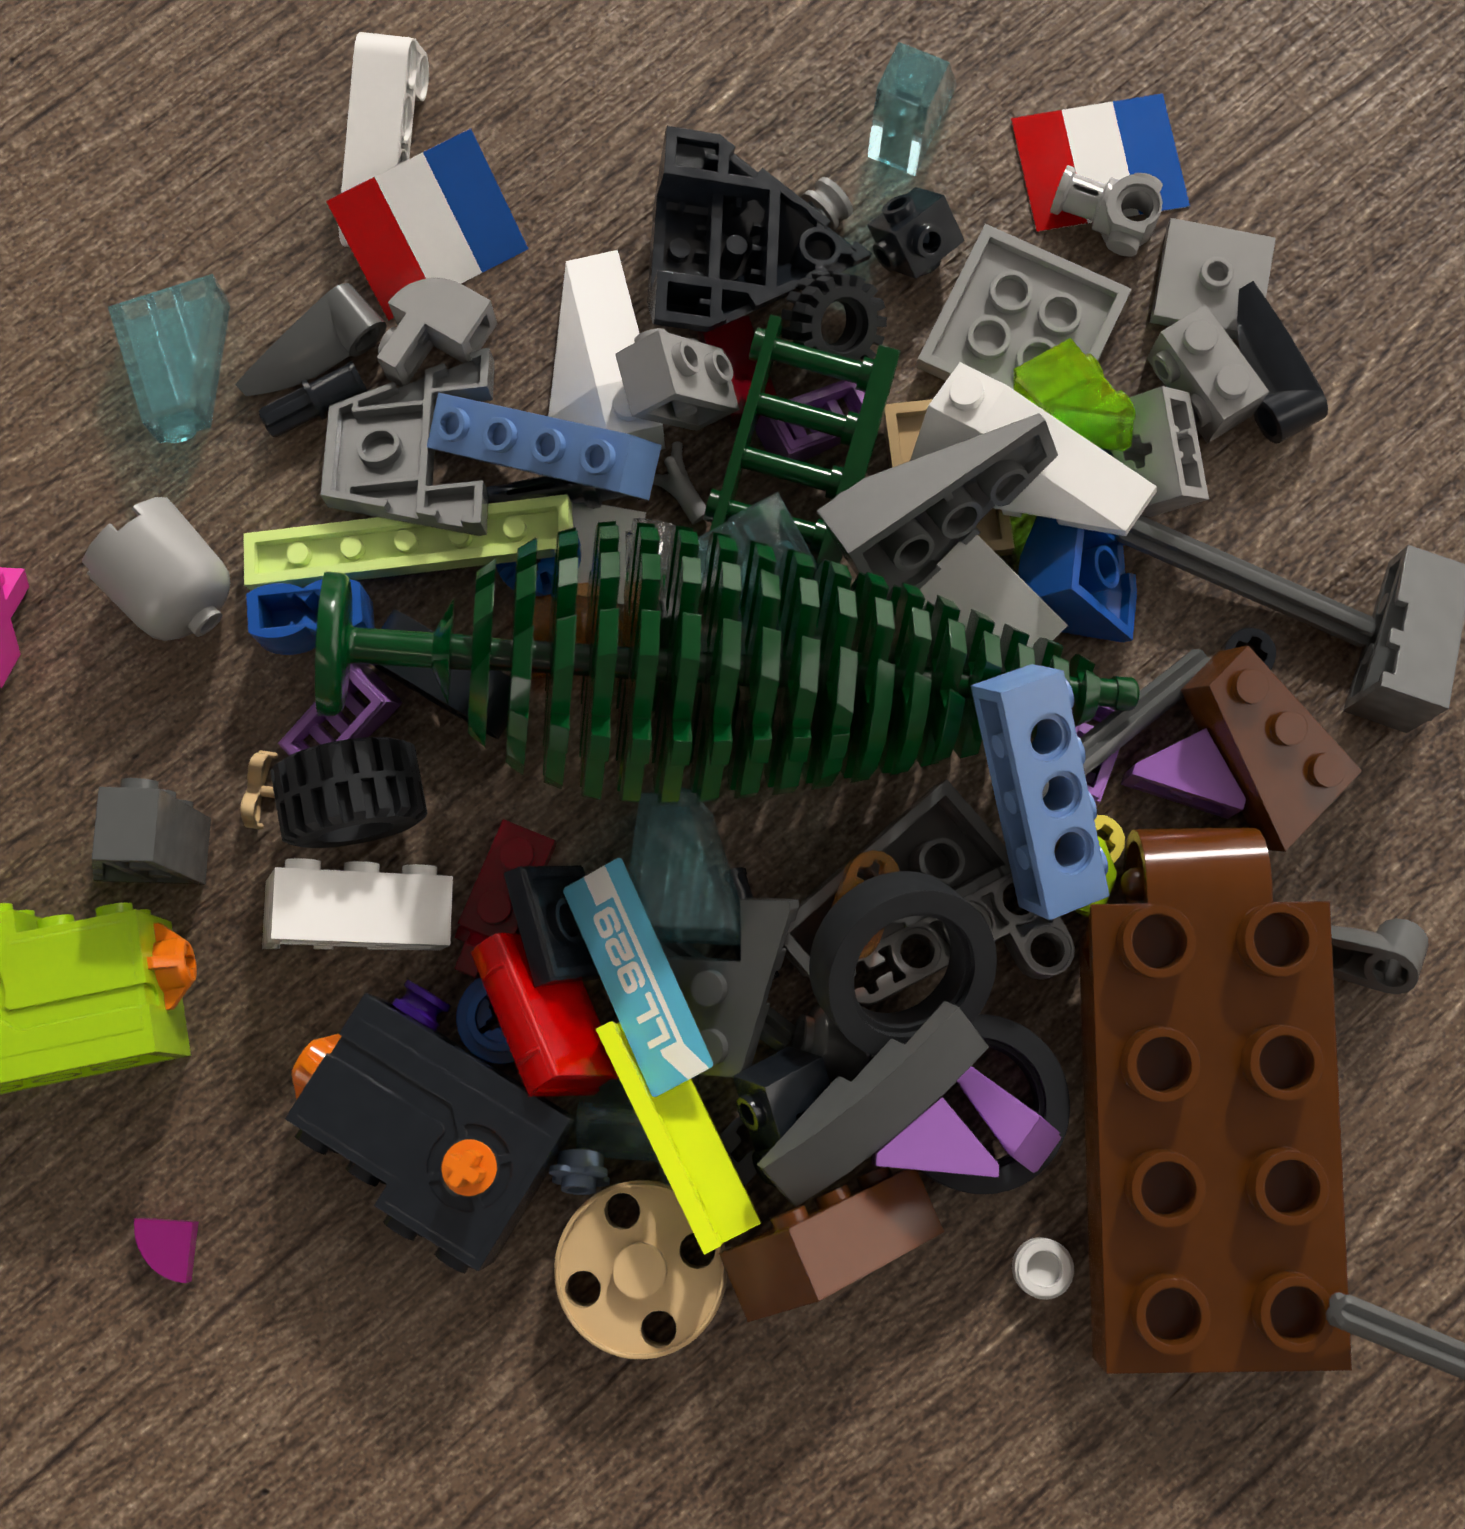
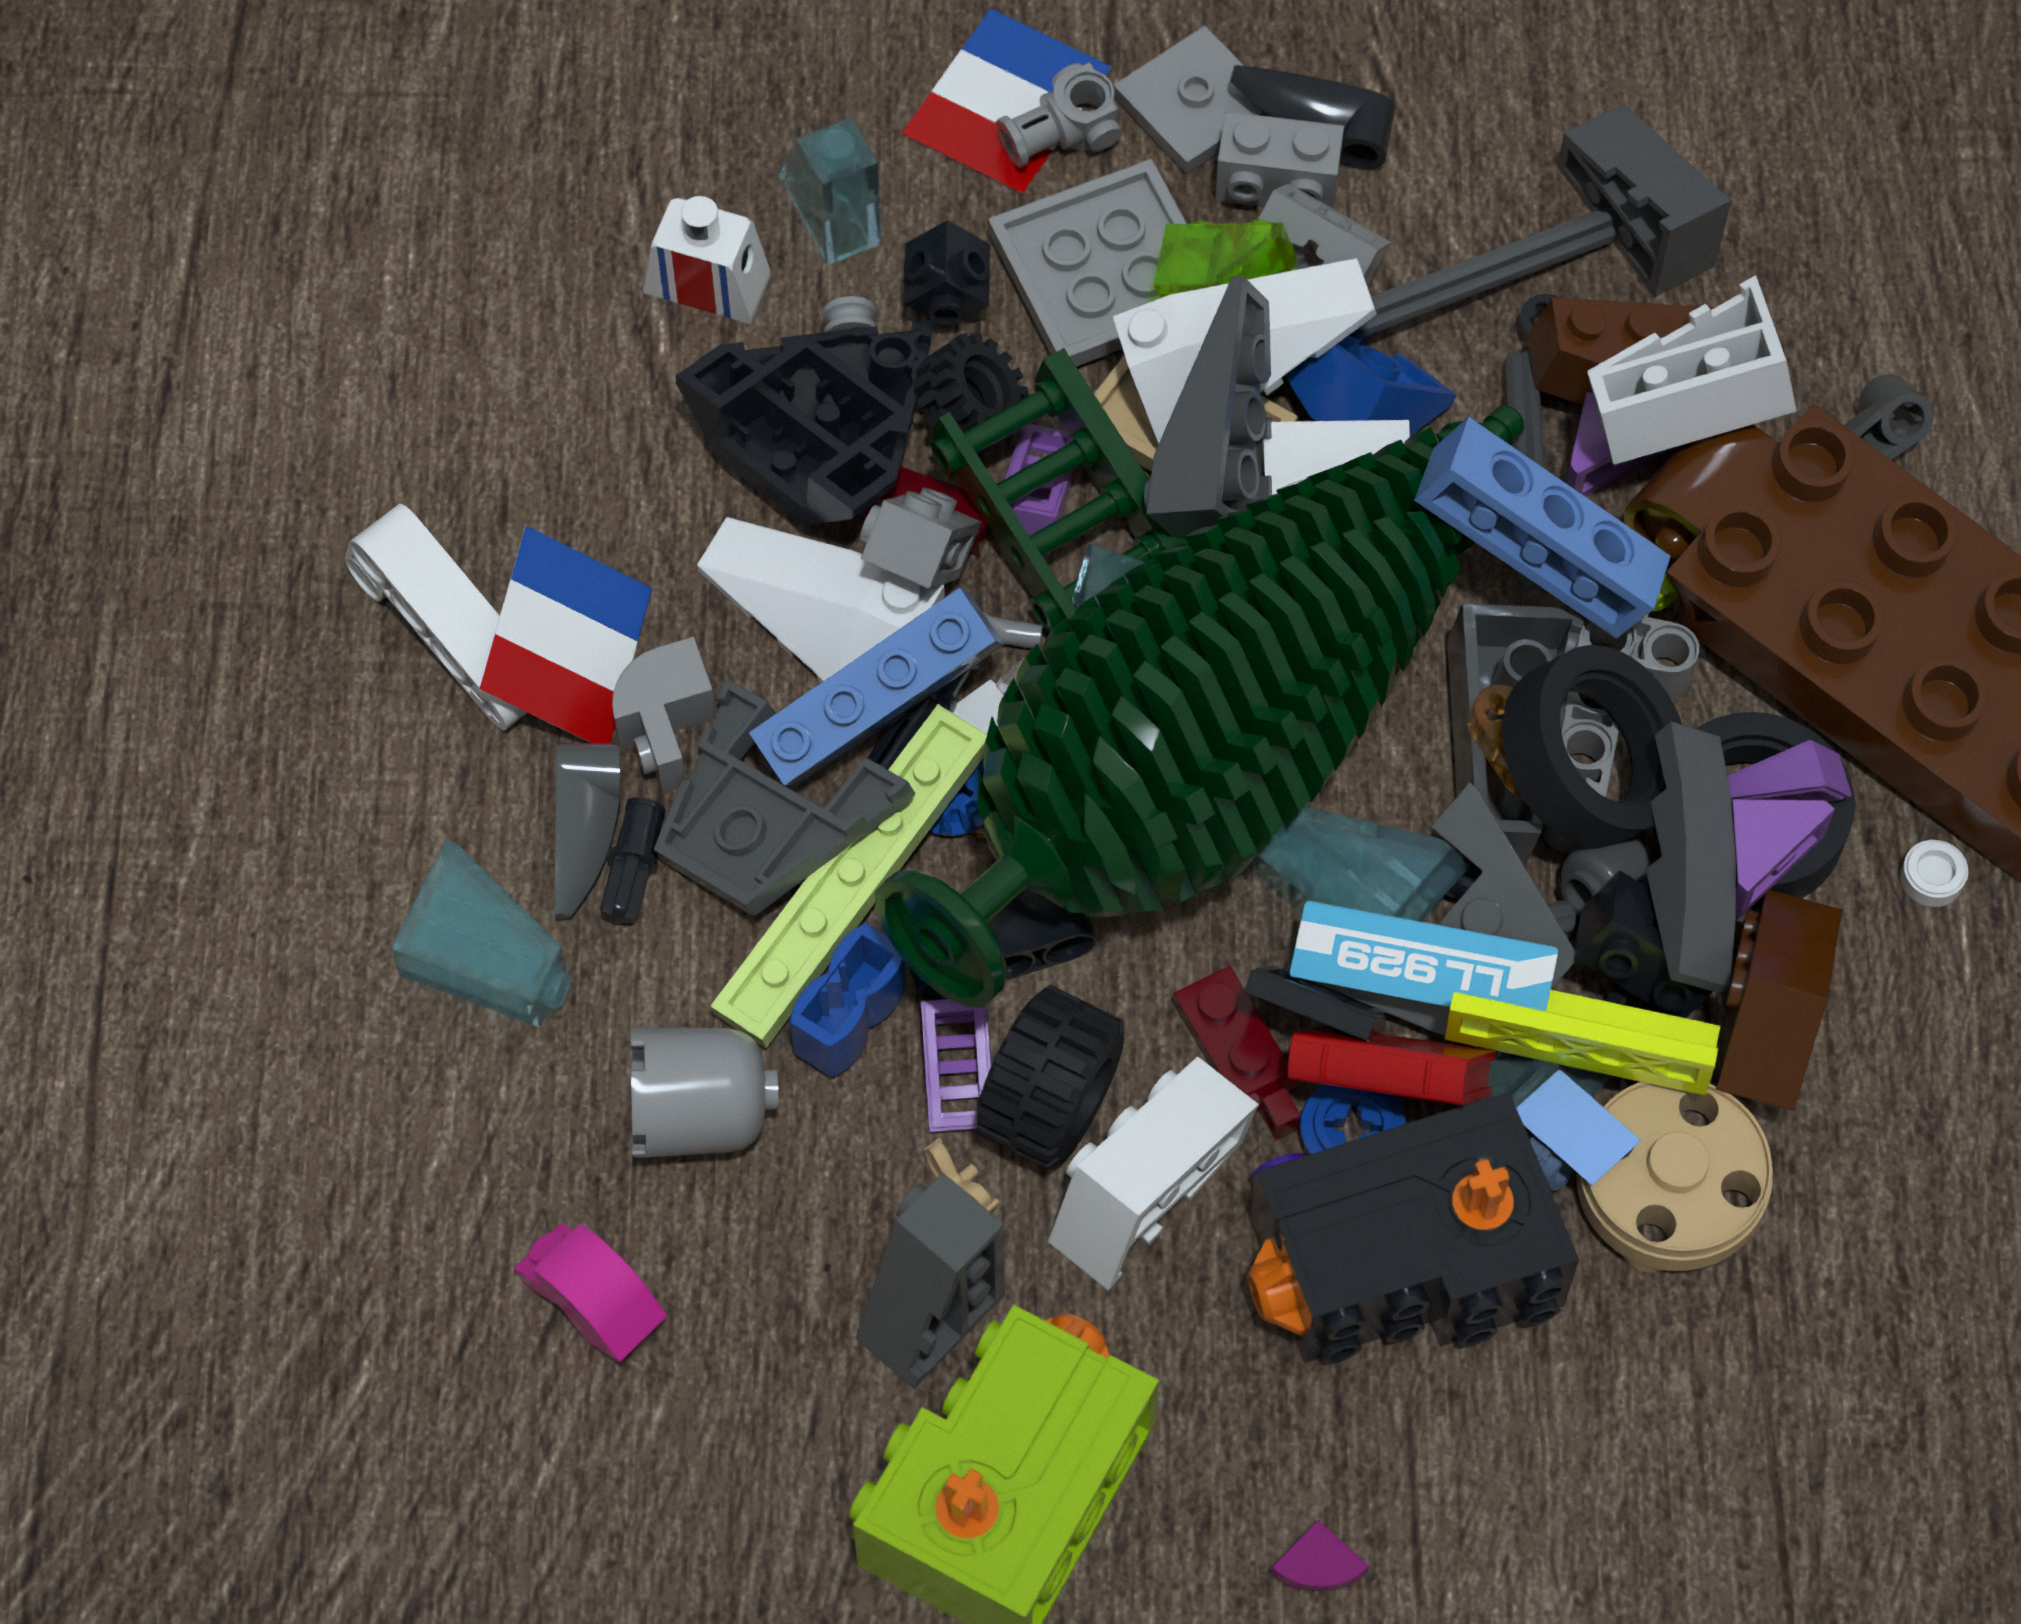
camera: 50 degrees left, 15 degrees down
(608, 1177) = (1576, 1127): none -> light blue sticker
(780, 62) = (707, 260): none -> white torso
(1264, 804) = (1696, 381): none -> white wedge

